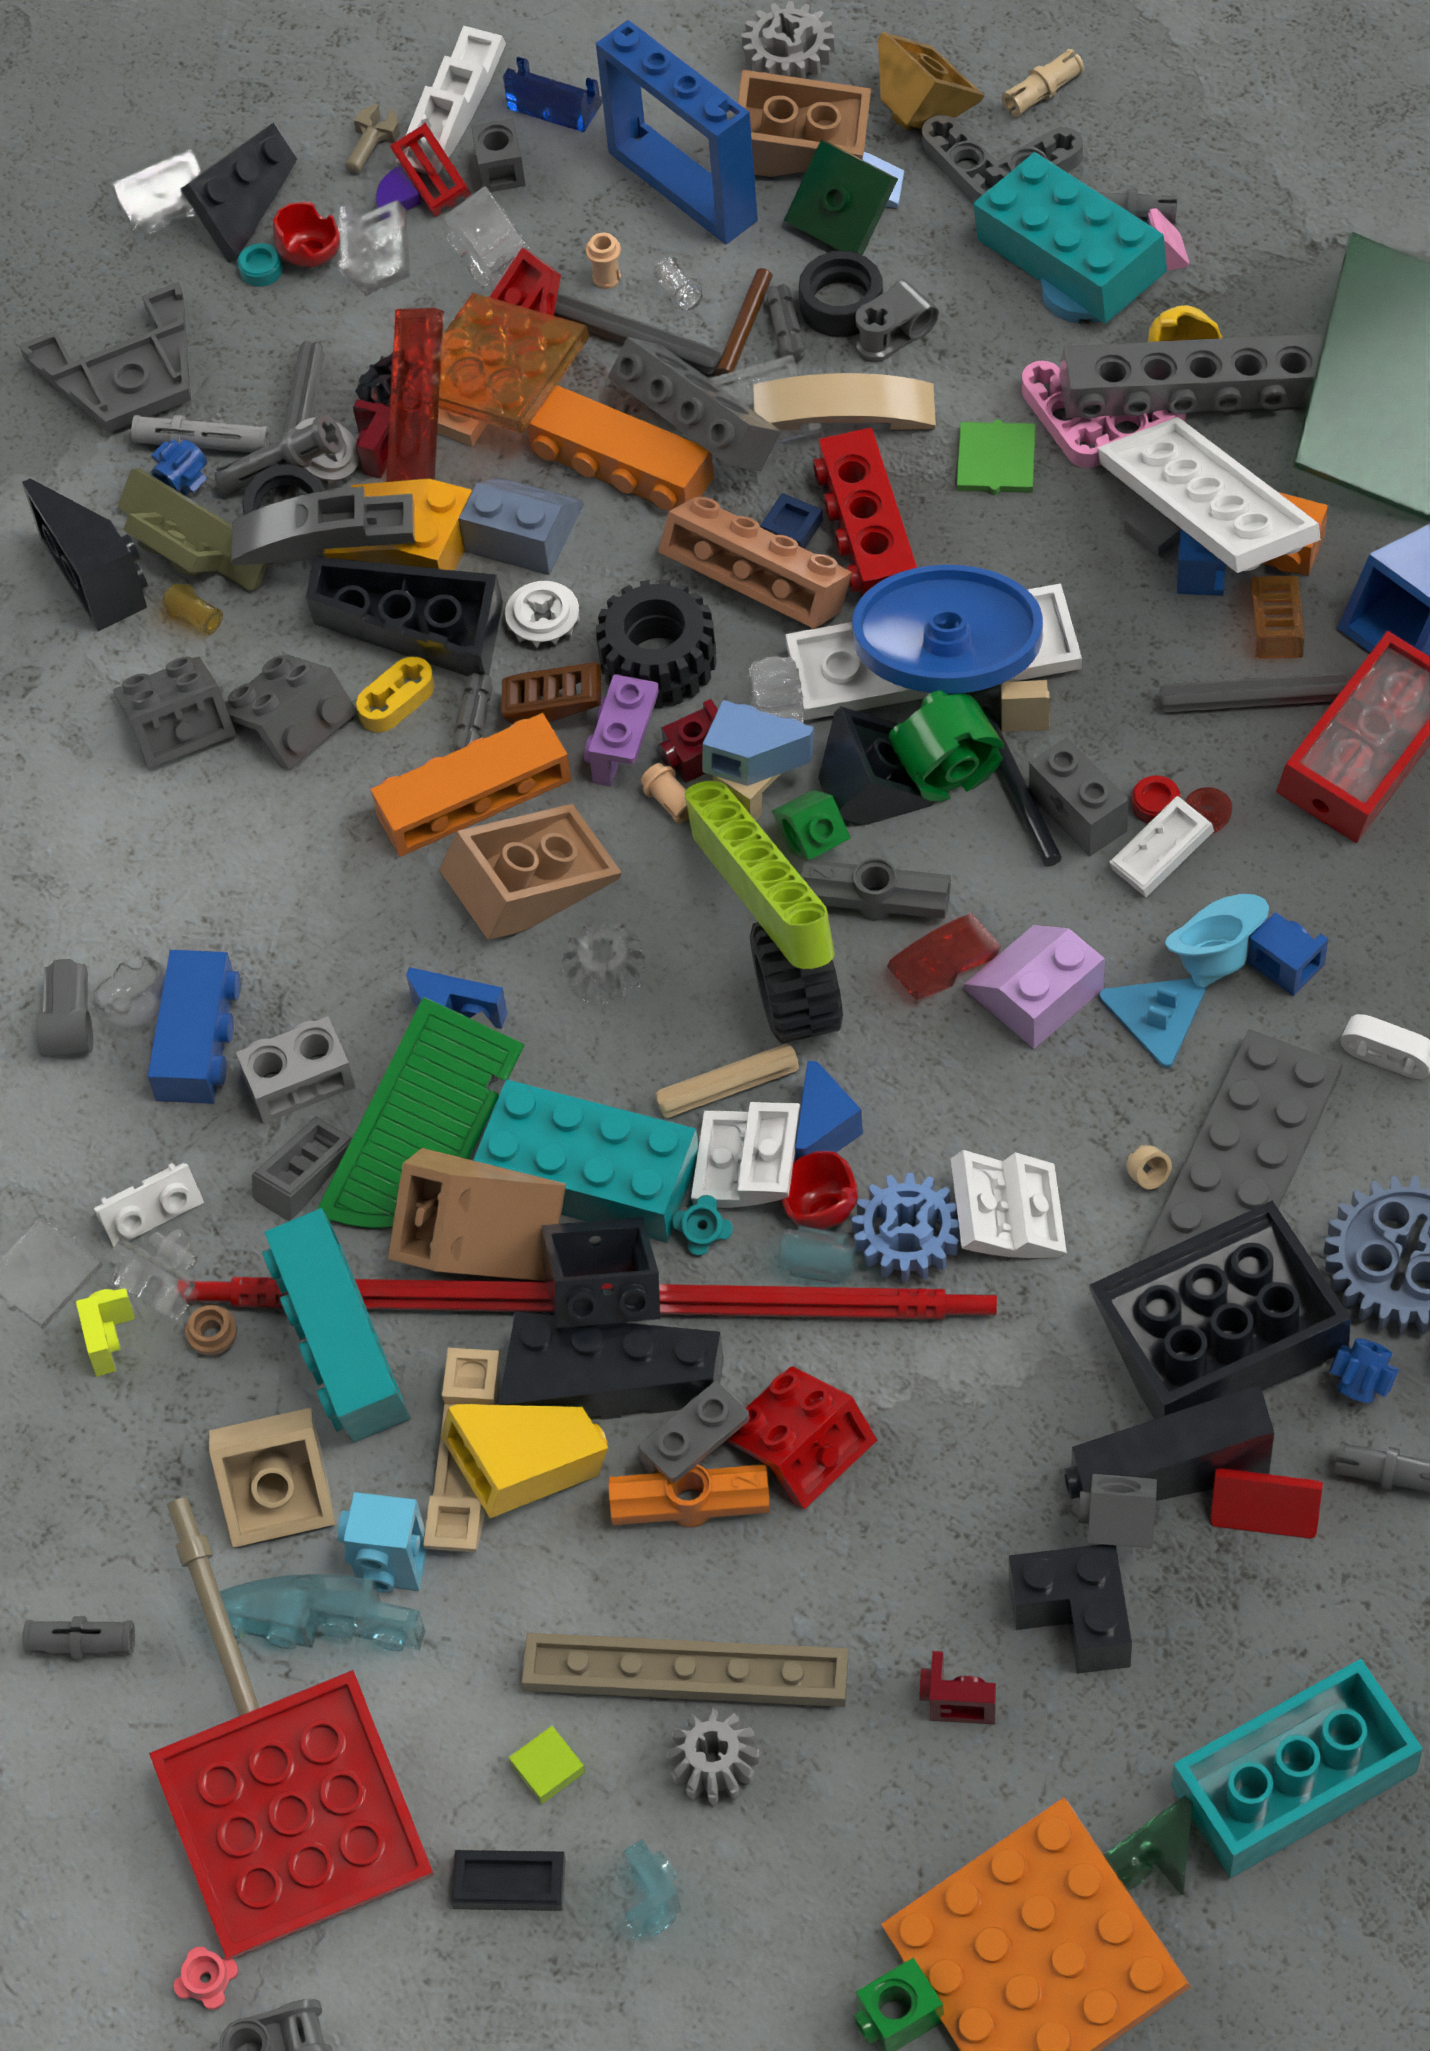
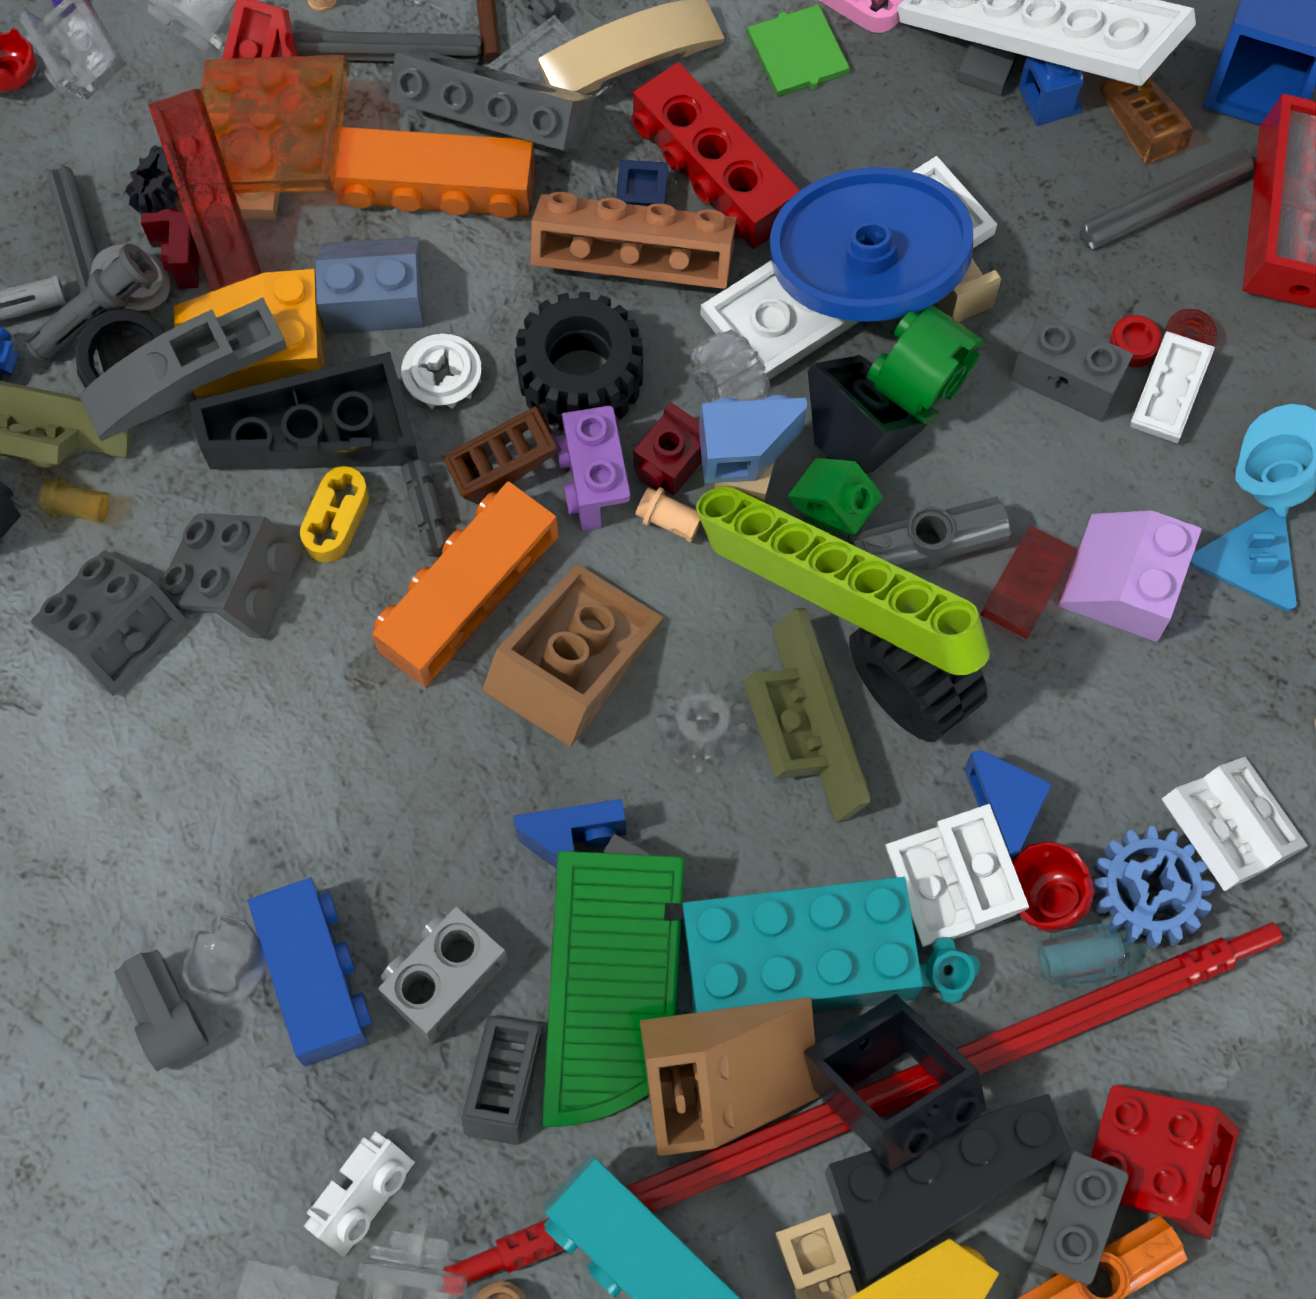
camera: 30 degrees left, 10 degrees up
(686, 989) = (803, 719): none -> olive bracket
(727, 1080) = (886, 801): tan axle -> none
(1024, 801) = (1025, 399): black bar -> none

